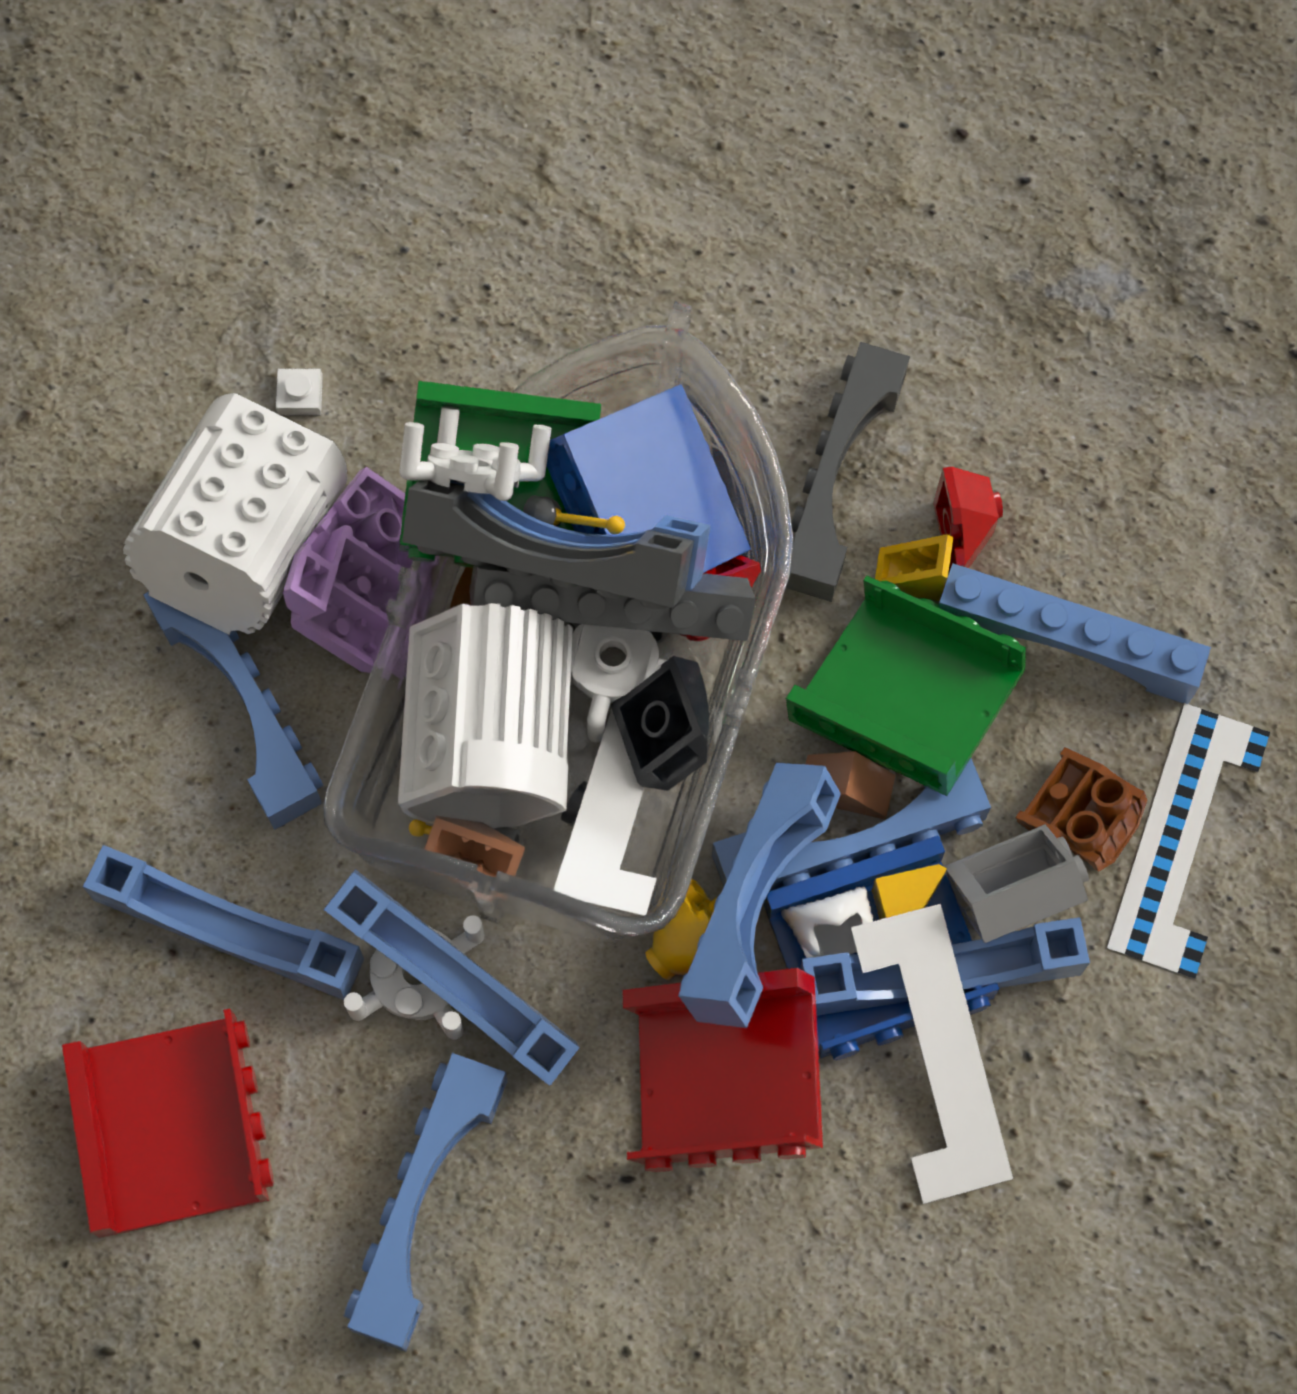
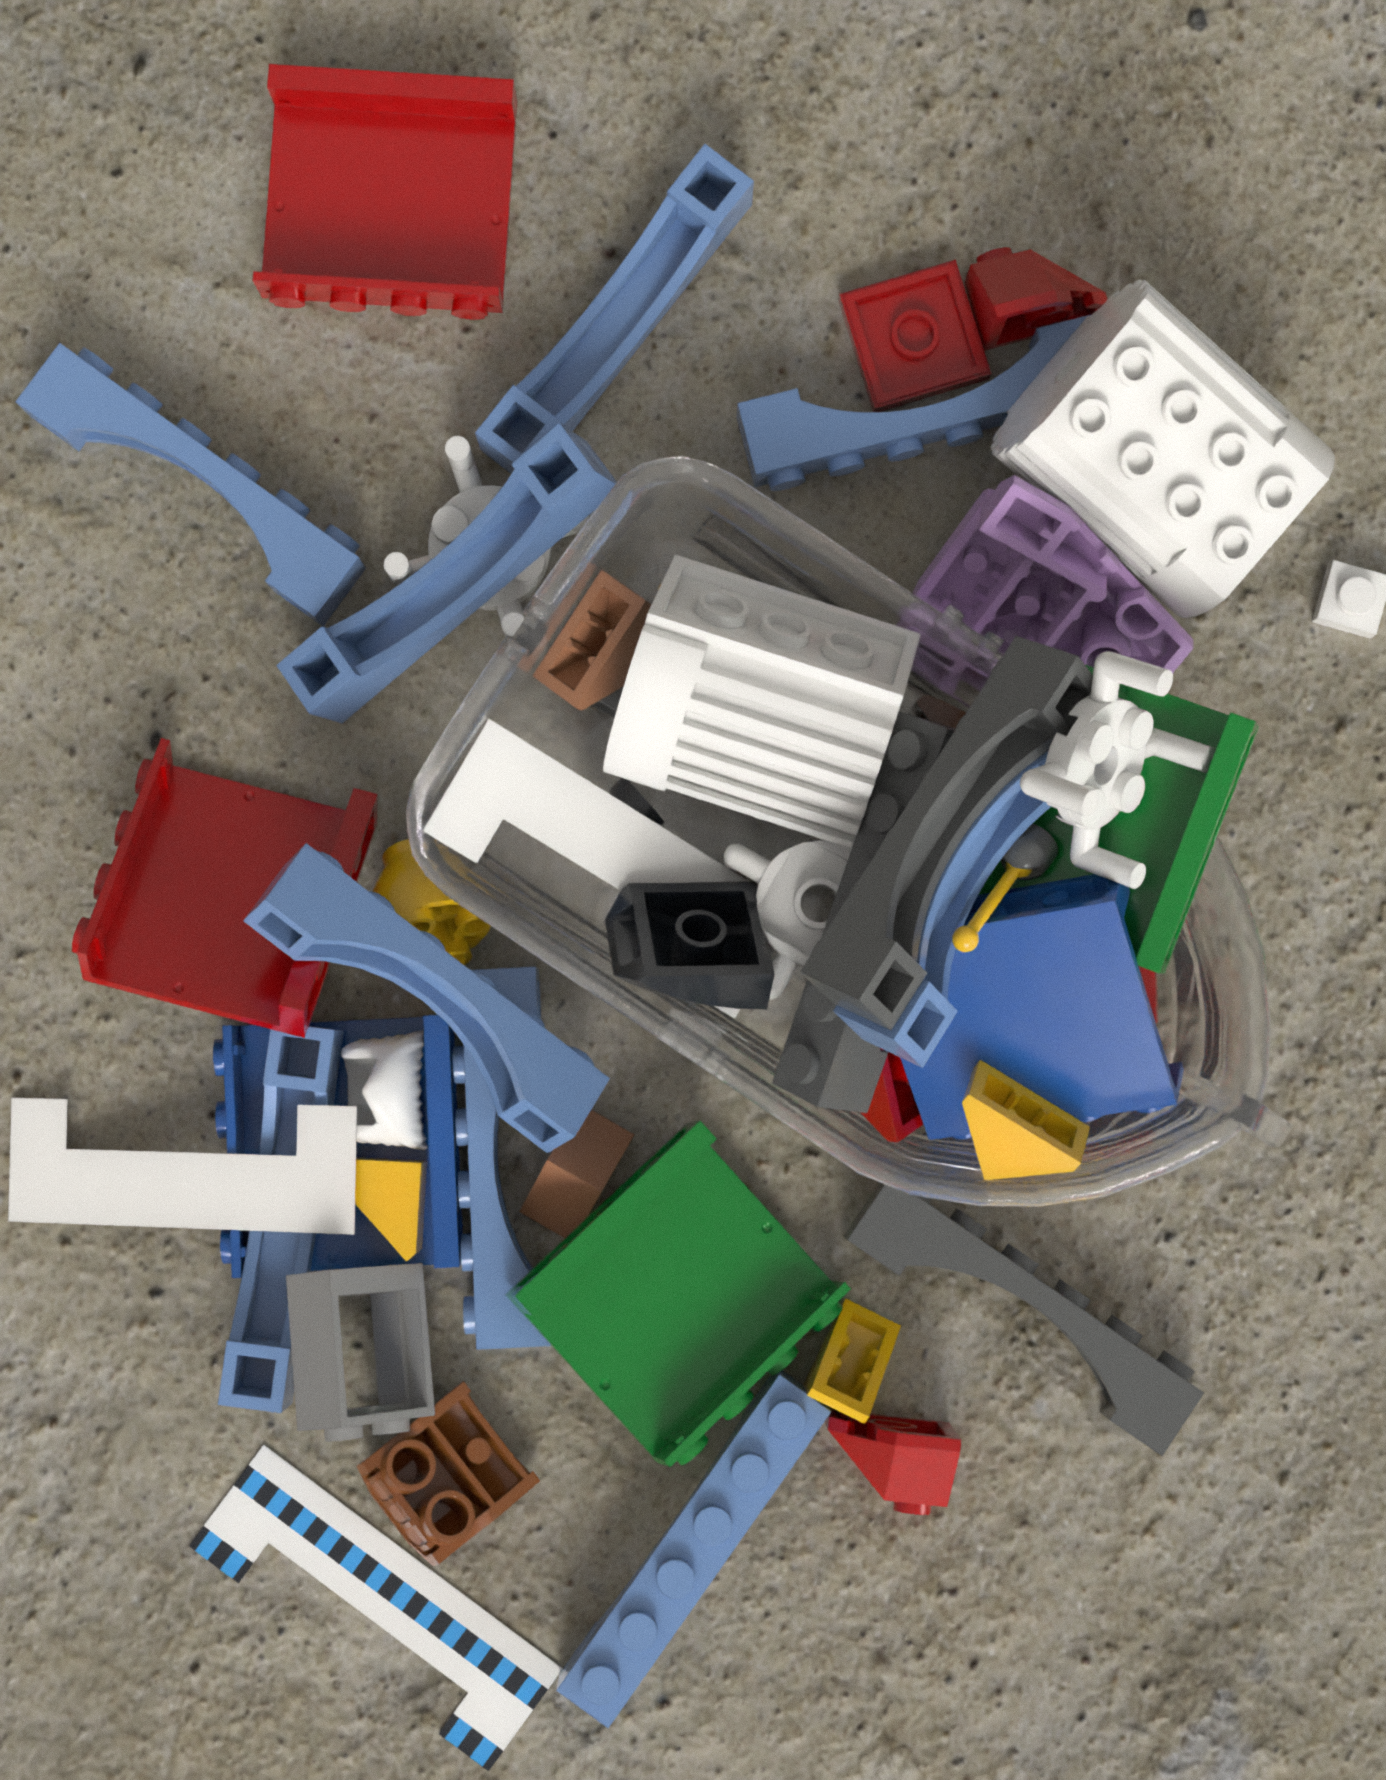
camera: 105 degrees right, 15 degrees up
(139, 651) = (1024, 292): none -> red slope
(184, 721) = (914, 336): none -> red tile
(728, 477) = (1019, 1130): none -> yellow slope

